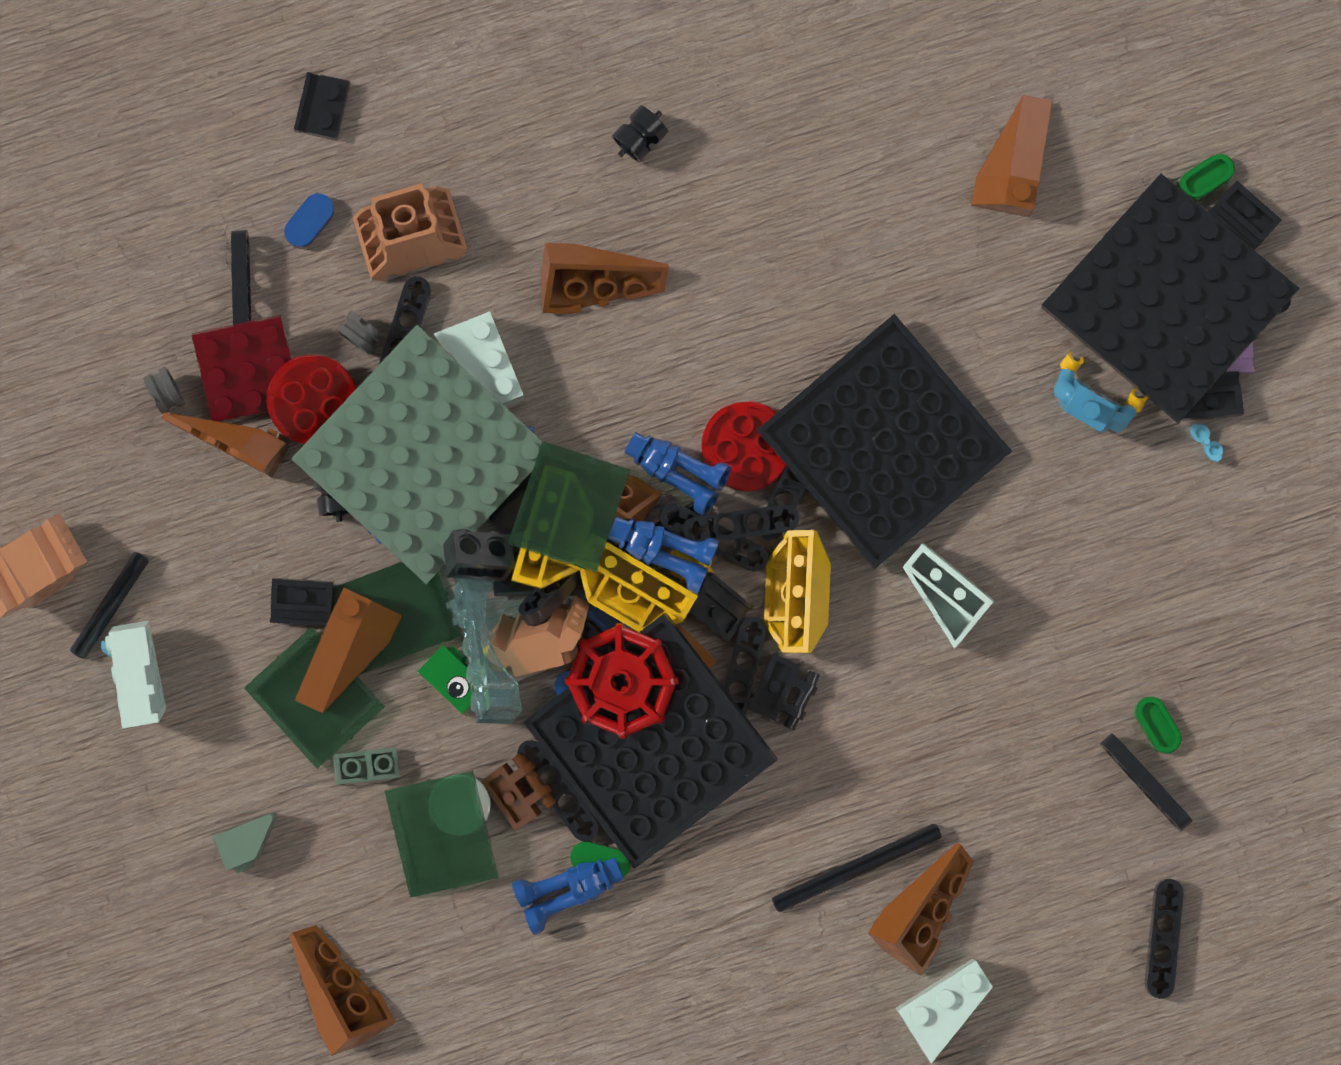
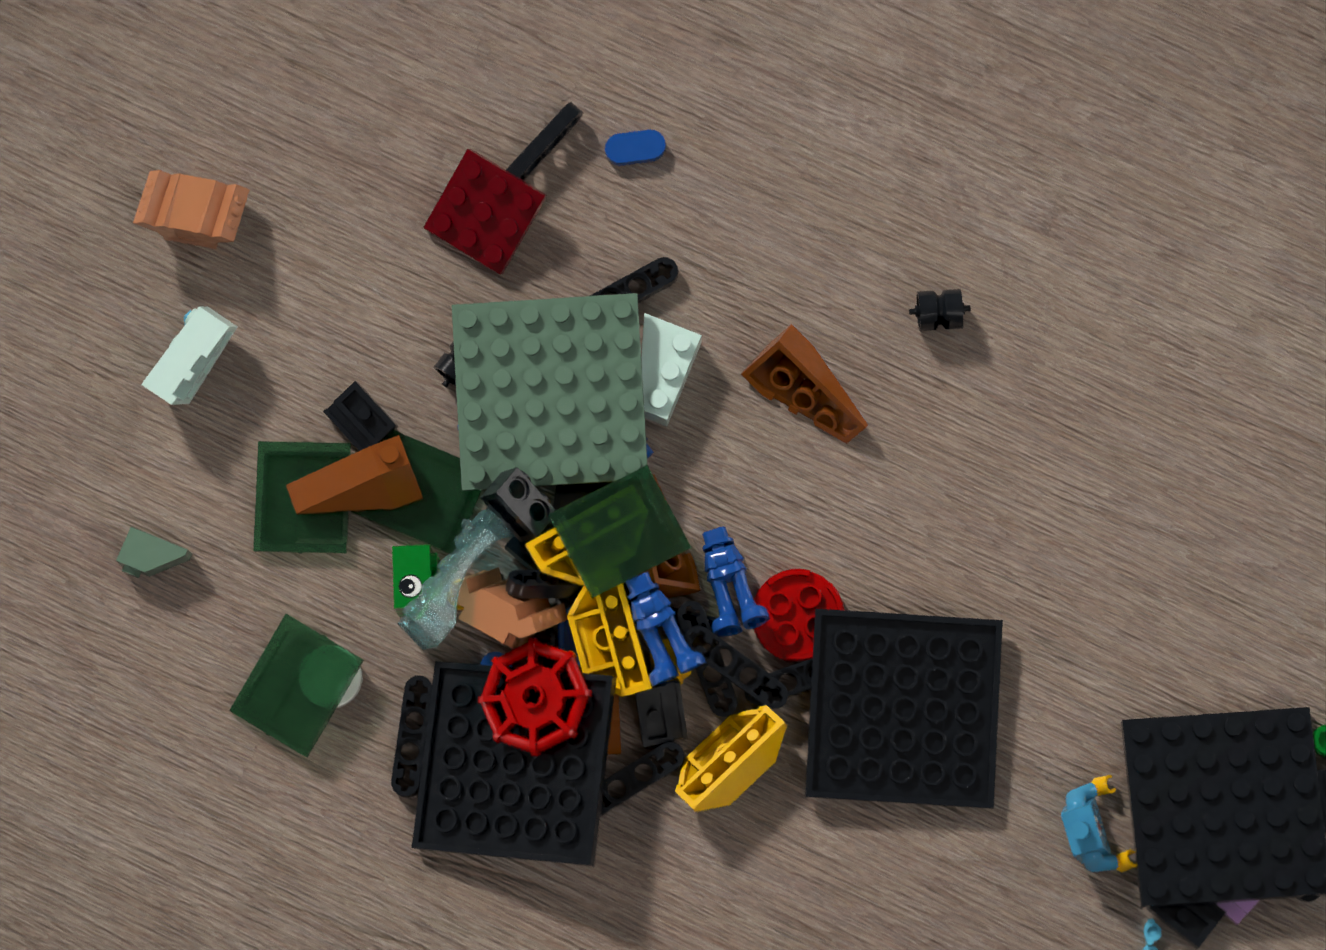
camera: 45 degrees right, 5 degrees down
(109, 605) = (221, 289): black axle -> none
(164, 390) = (410, 171): dark grey wheel -> none
(247, 444) = (432, 267): dark orange wedge -> none
(307, 394) = (510, 270): red tile -> none
(322, 106) = (725, 73): black plate -> none
(340, 1001) = (105, 736): dark orange wedge -> none
(360, 333) = (592, 263): dark grey wheel -> none
(366, 766) = (290, 583): sand green slope -> none
(409, 231) = (700, 223): nougat slope -> none
(511, 795) = (374, 708): reddish brown plate -> none
(586, 883) = (365, 822): blue piece -> none
(591, 852) = (392, 817): green tile -> none
(775, 687) = (646, 814): black plate -> none
(947, 592) = (842, 866): light aqua wedge -> none
(1013, 167) = (1200, 596): dark orange wedge -> none

